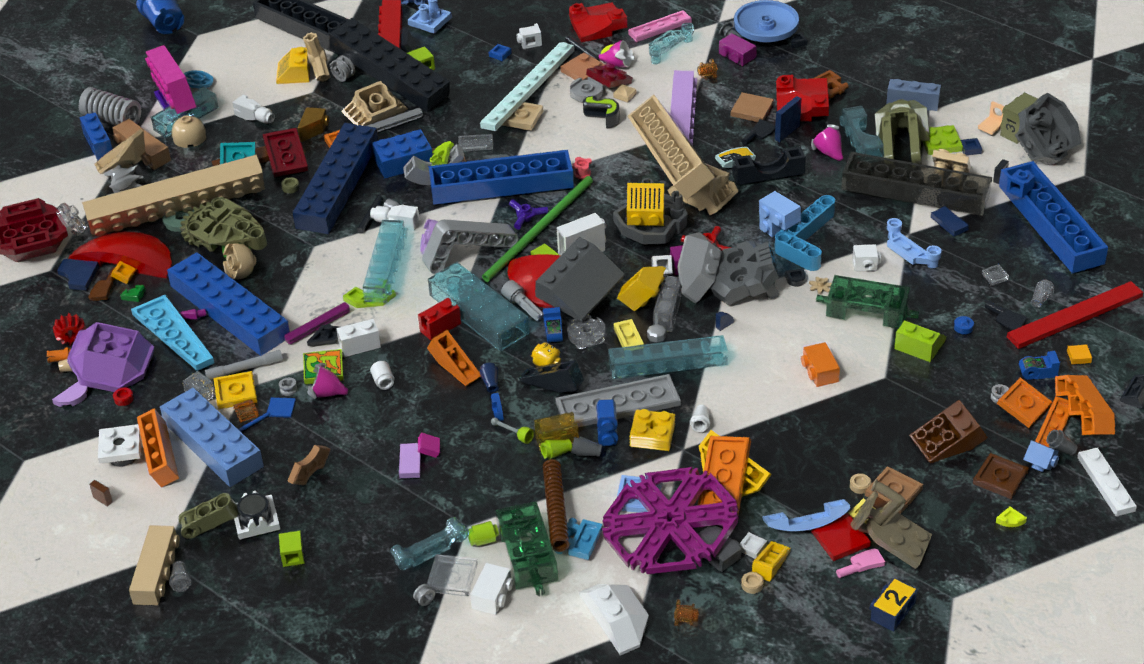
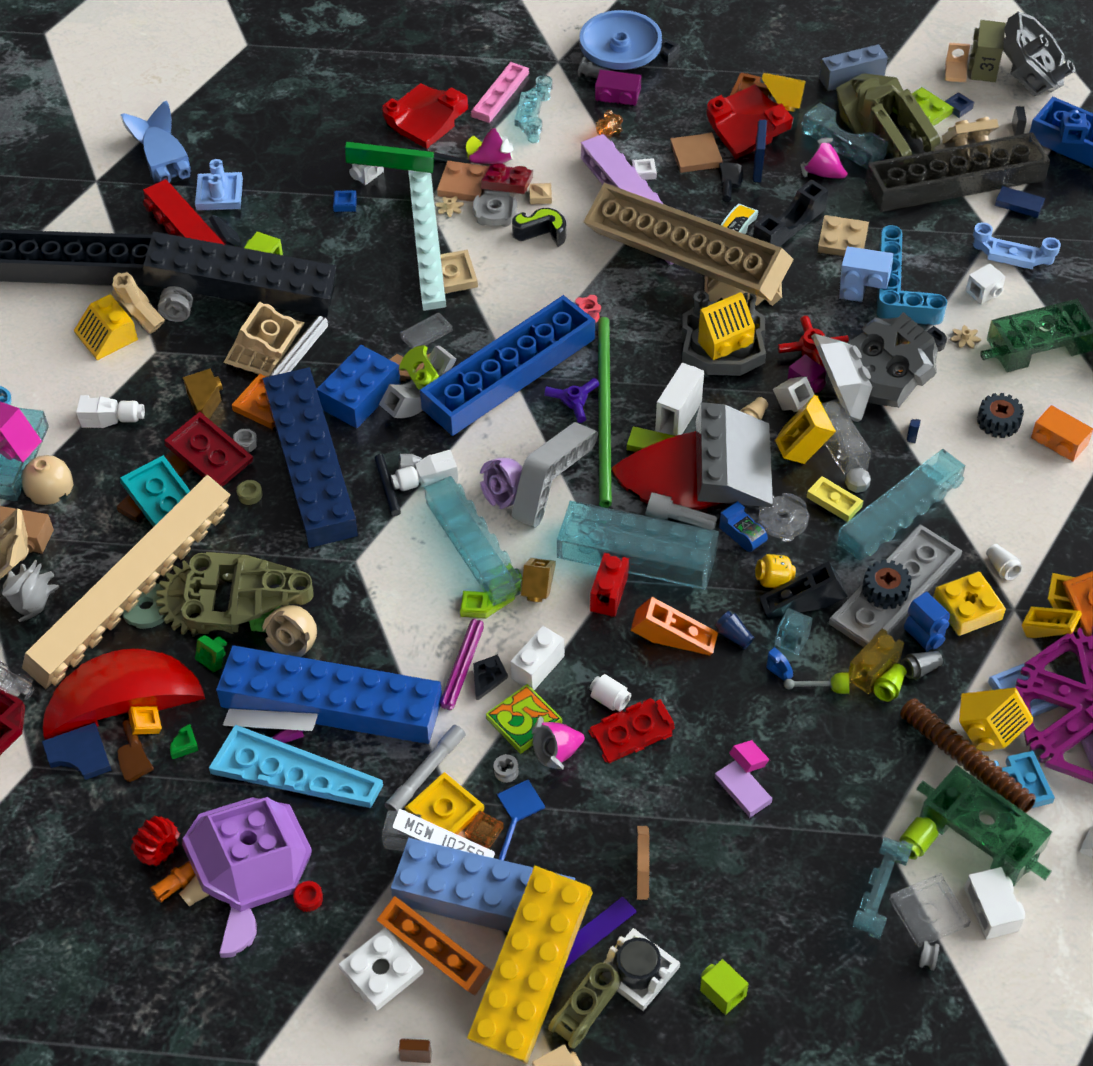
camera: 35 degrees left, 10 degrees up
(186, 302) = (270, 719): none -> white sticker
(187, 250) = (210, 652): none -> green tile
(191, 476) = (530, 964): none -> yellow brick
(210, 394) = (434, 834): none -> white sticker
(264, 489) = (600, 928): none -> dark purple sticker
(313, 156) = (246, 438): none -> light grey tile
(378, 400) = (633, 729): none -> red piece
(401, 297) = (537, 579): none -> pearl gold slope
(522, 392) = (793, 631): none -> clear light blue brick
(540, 33) = (389, 157): none -> green tile
(560, 78) = (450, 205): none -> tan plant
(587, 489) = (993, 717): none -> yellow slope
(606, 389) = (877, 588): none -> black wheel
(629, 266) = (756, 408): none -> tan cone
(686, 458) = (1043, 622): none -> yellow slope
(707, 104) = (645, 168): none -> white tile
(790, 337) = (1000, 415): none -> black wheel
(801, 192) = (841, 232): none -> tan plate
(843, 89) = (785, 90): none -> yellow slope

